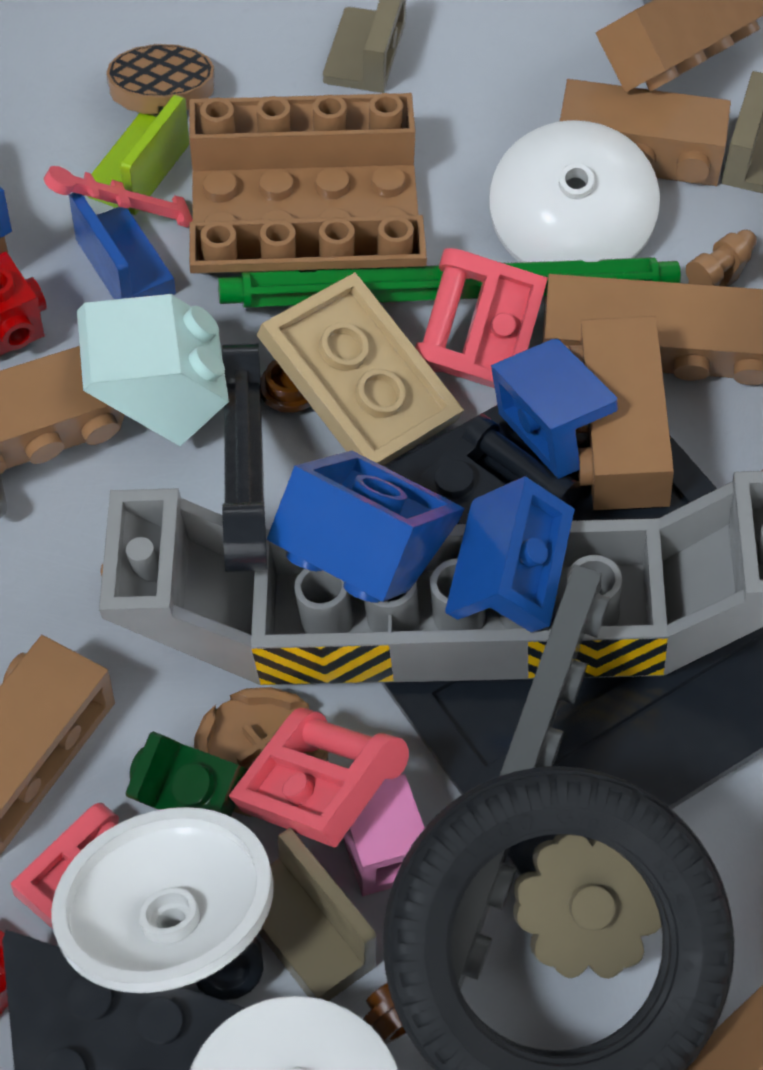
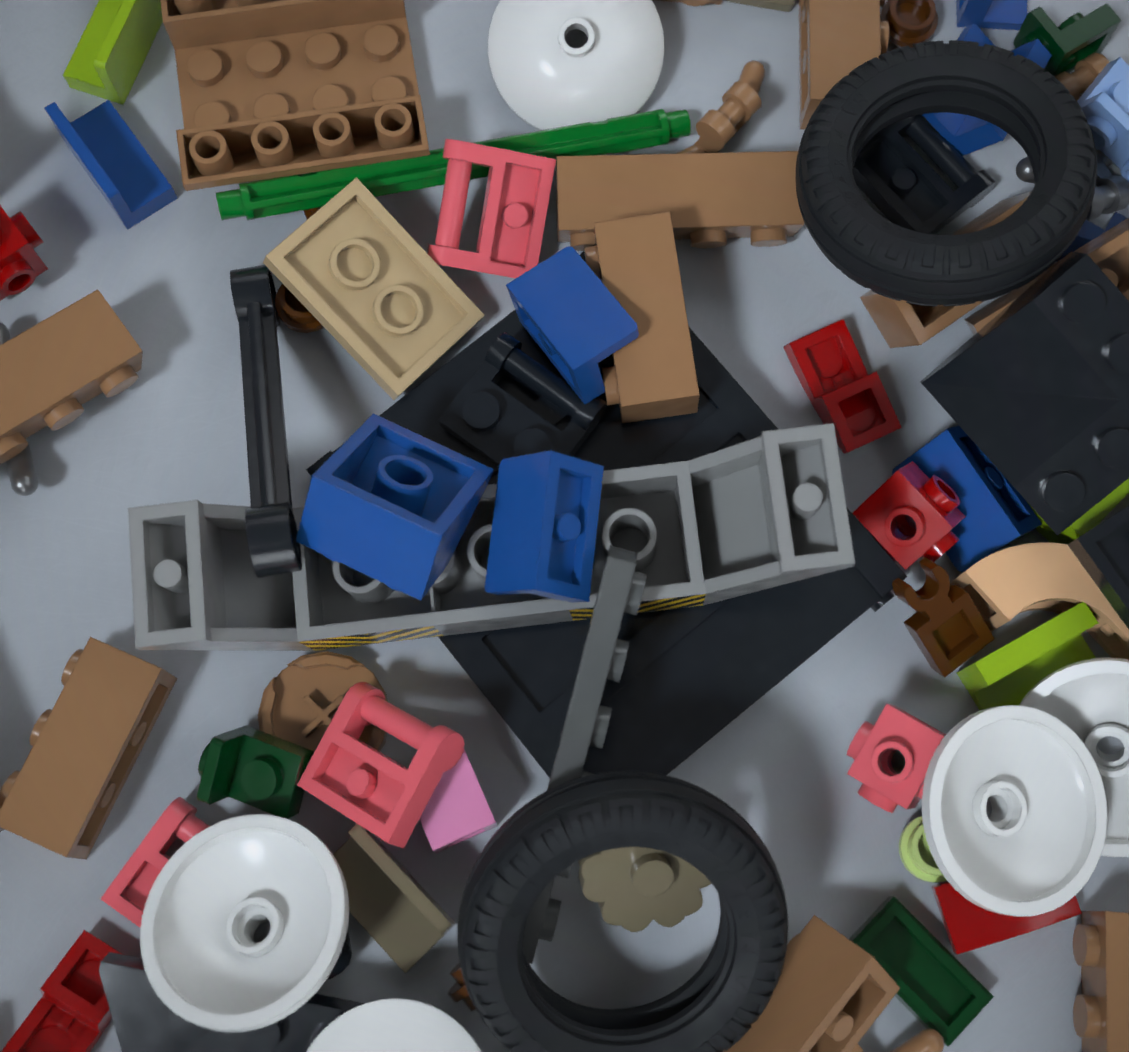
camera: 10 degrees left, 20 degrees up
(64, 183) = (33, 99): coral piece -> none
(153, 362) = (158, 308): light aqua slope -> none

